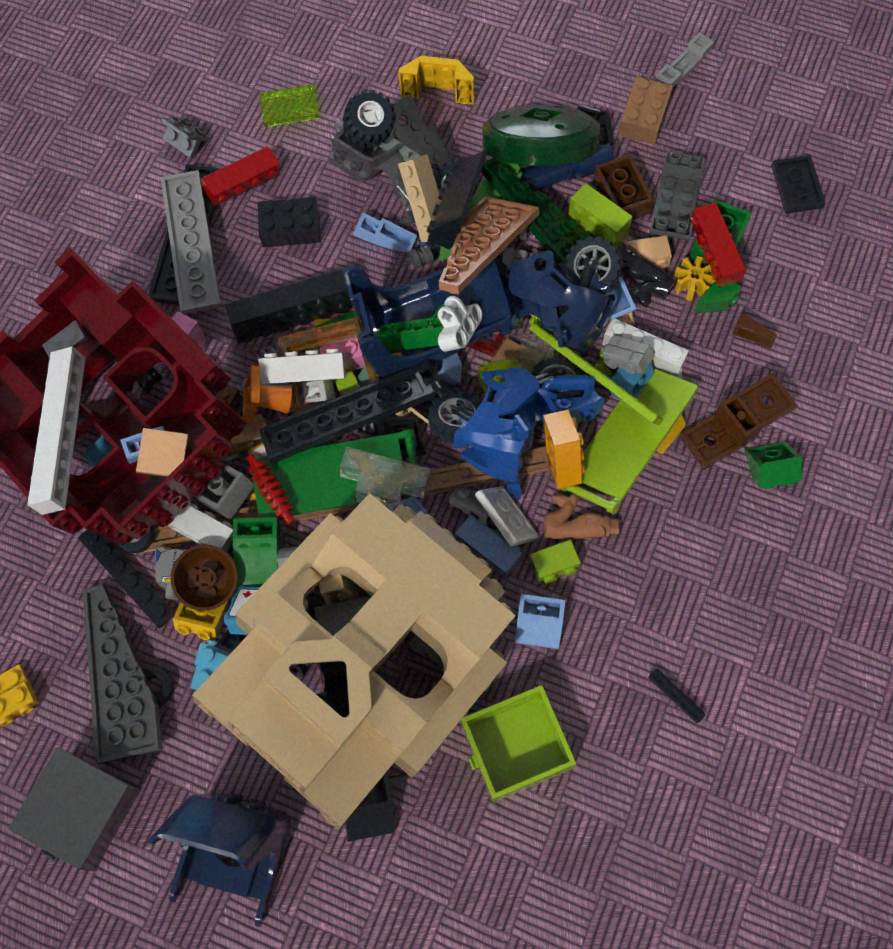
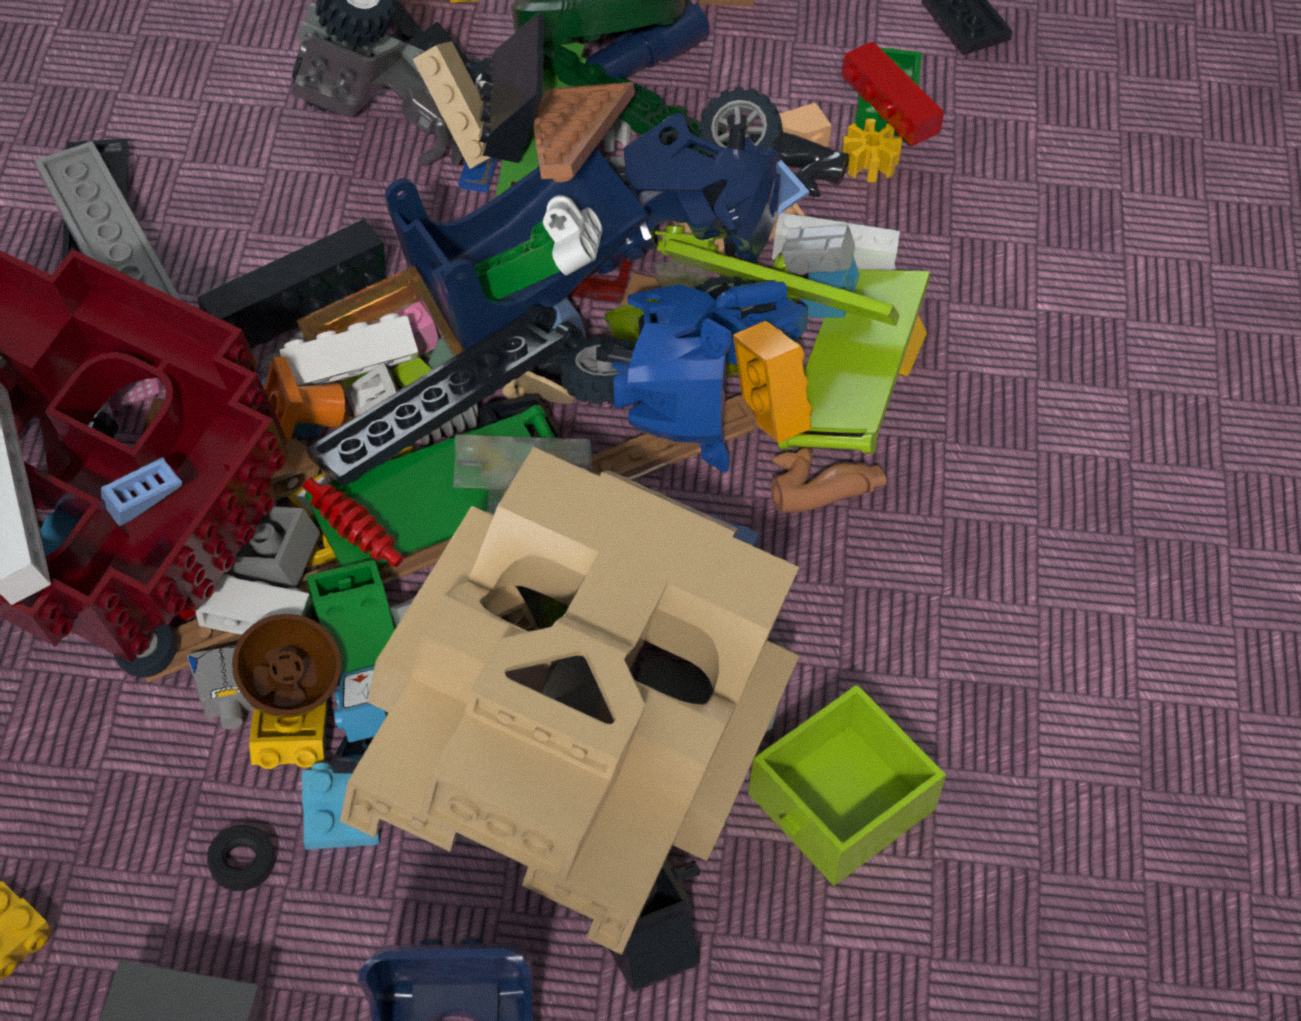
camera: 25 degrees left, 15 degrees down
(121, 697) = (195, 884): dark grey wing -> none
(128, 578) = (145, 713): black plate -> none
(161, 452) = (172, 490): light nougat tile -> none
(184, 135) = (49, 107): dark grey bracket -> none
(240, 176) = (159, 140): red brick -> none
(288, 222) = (254, 187): black brick -> none
(289, 105) = (202, 45): clear neon green tile -> none
(384, 233) = (379, 172): light blue slope -> none
(421, 256) = (467, 196): dark grey wheel -> none
(468, 503) = (673, 487): light grey wing -> none
(506, 515) = (718, 491): white tile -> none
(540, 621) = (819, 618): light blue slope -> none
(554, 562) = (809, 537): lime brick -> none
(599, 215) = (696, 81): lime brick -> none
(624, 186) = (731, 57): reddish brown brick -> none
(676, 695) = (1048, 671): black axle -> none
(677, 195) = (810, 54): dark grey slope -> none
(718, 298) = (913, 166): green slope -> none
(738, 421) = (1000, 305): reddish brown bracket -> none
(754, 331) = (967, 196): reddish brown slope -> none
(774, 465) = (1069, 352): green slope -> none

